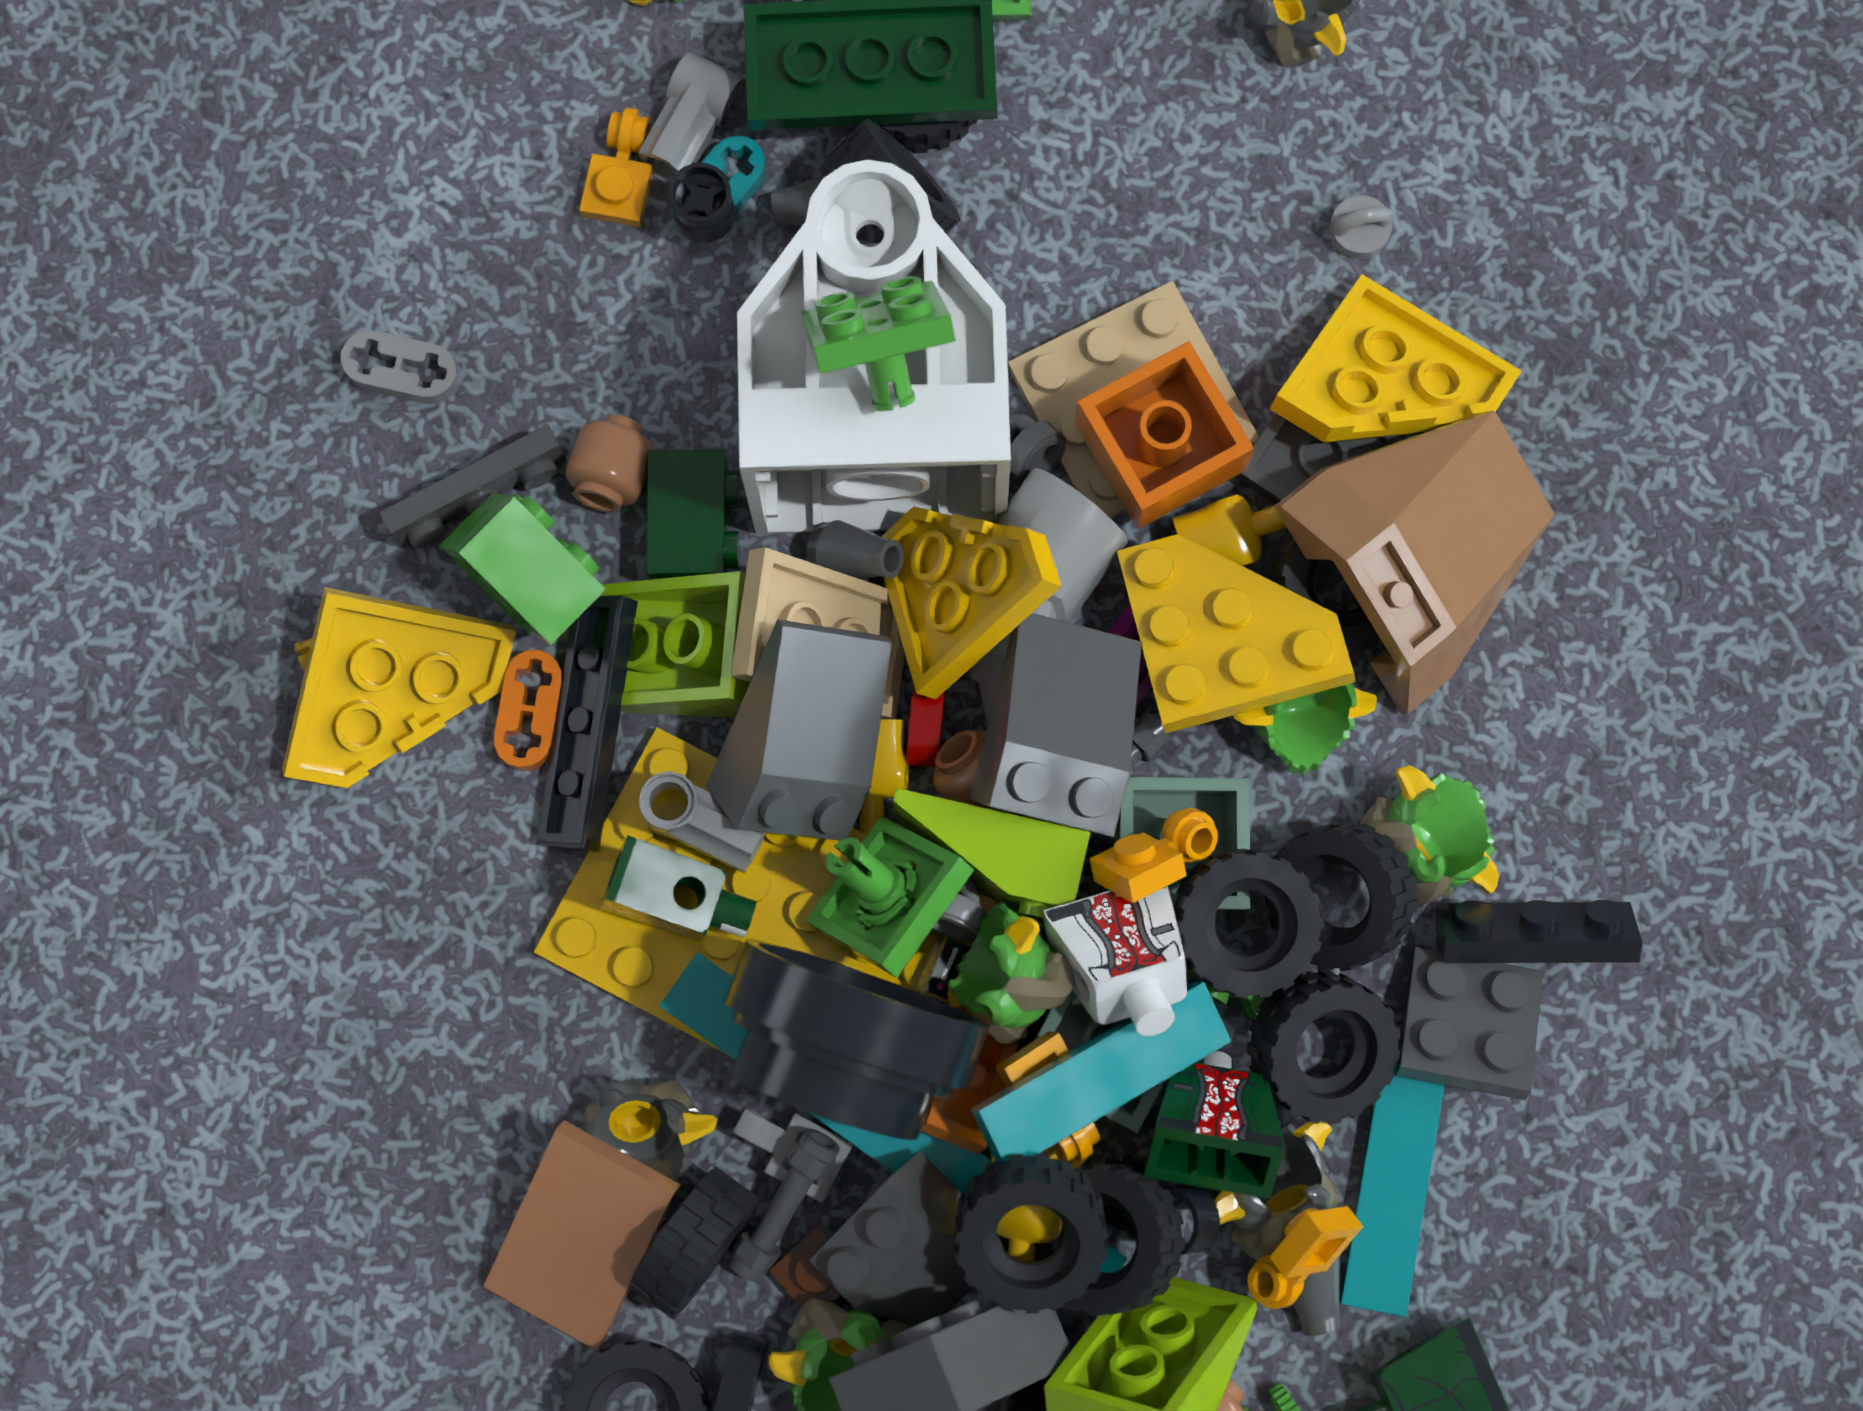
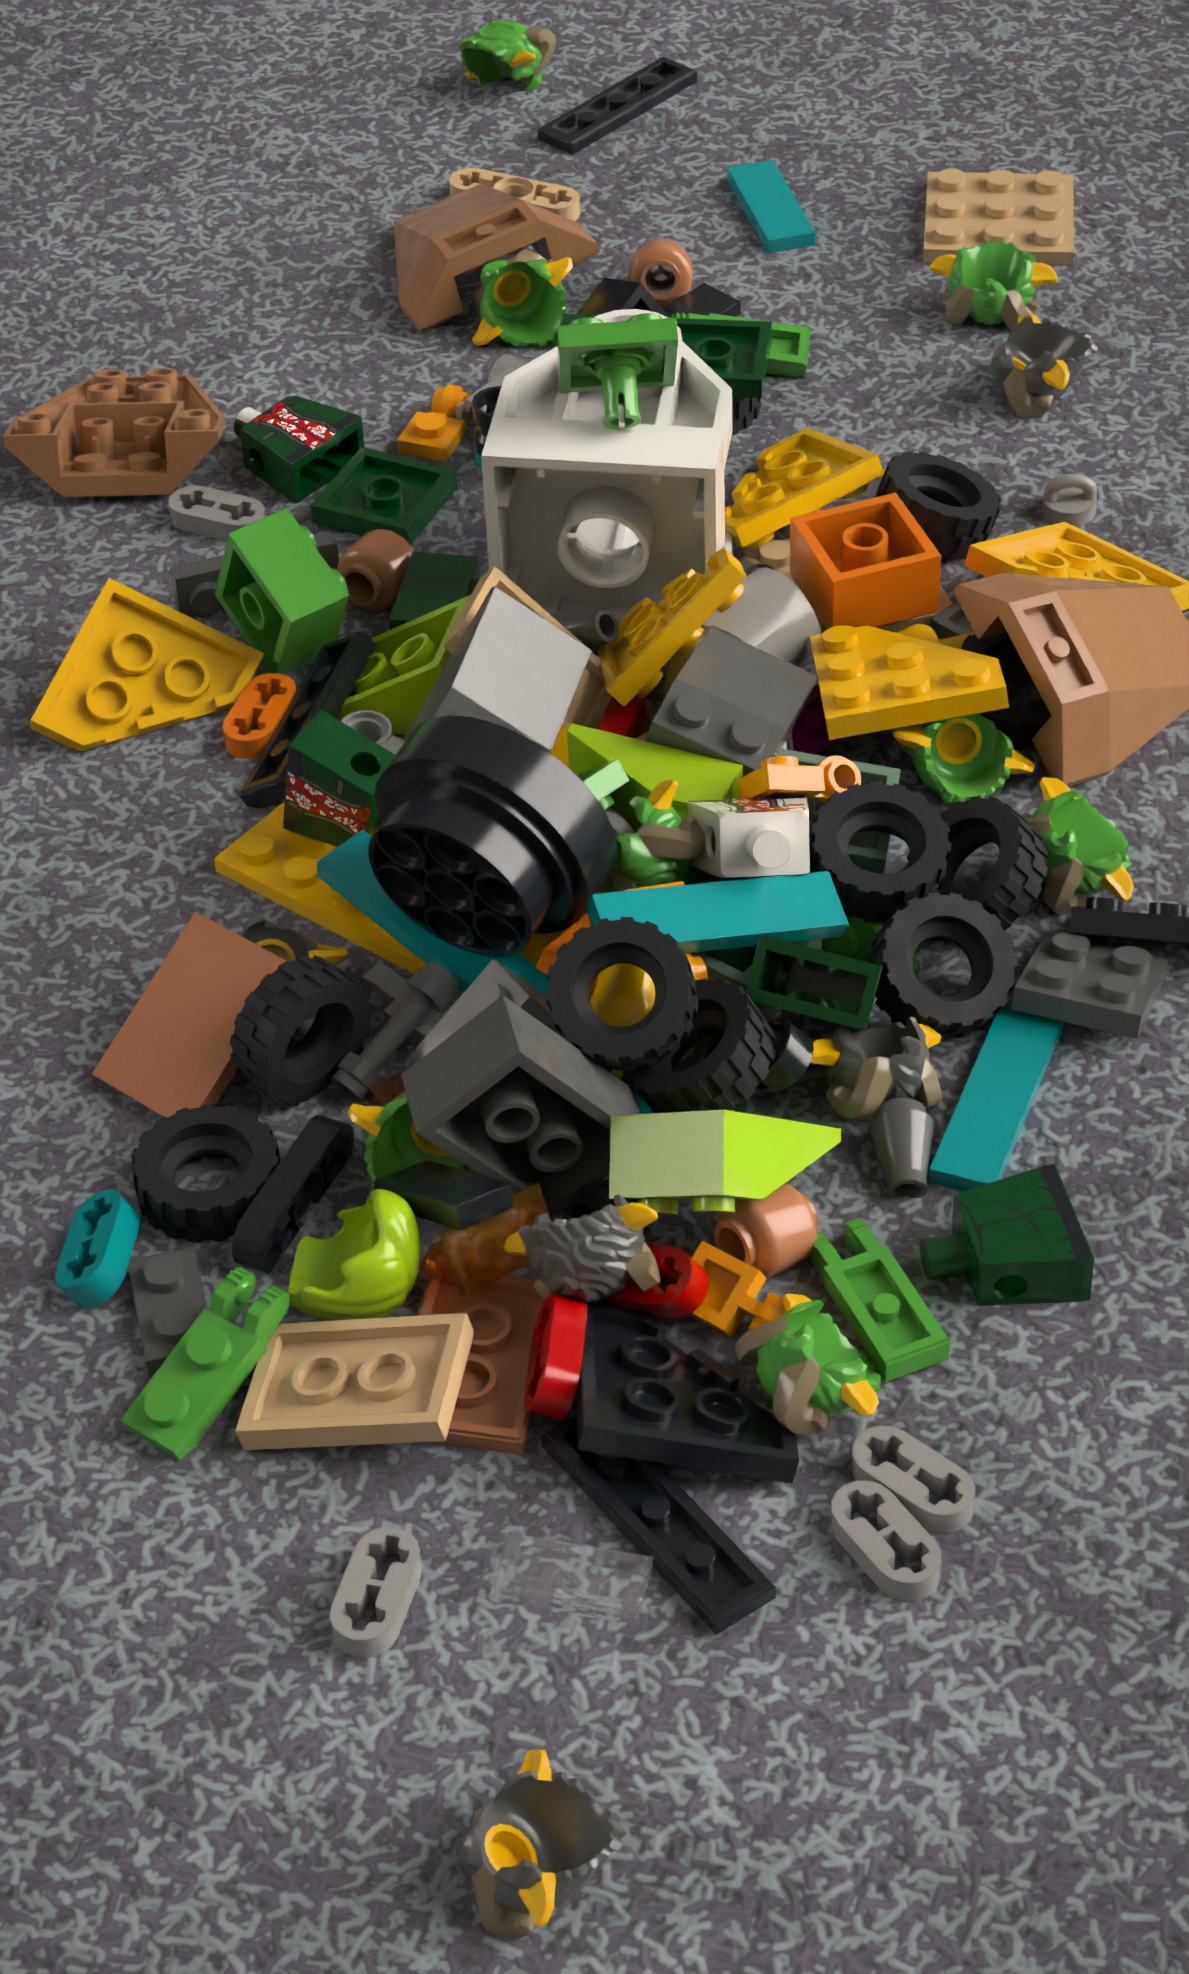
camera: 10 degrees right, 35 degrees down
(254, 240) = (118, 434): none -> medium nougat wedge
(466, 241) = (298, 444): none -> dark green torso
(586, 318) = (385, 494): none -> dark green plate
(1058, 257) = (797, 480): none -> yellow plate
(1244, 240) = (944, 498): none -> black tyre
(1310, 1246) = (902, 1069): light orange plate -> none

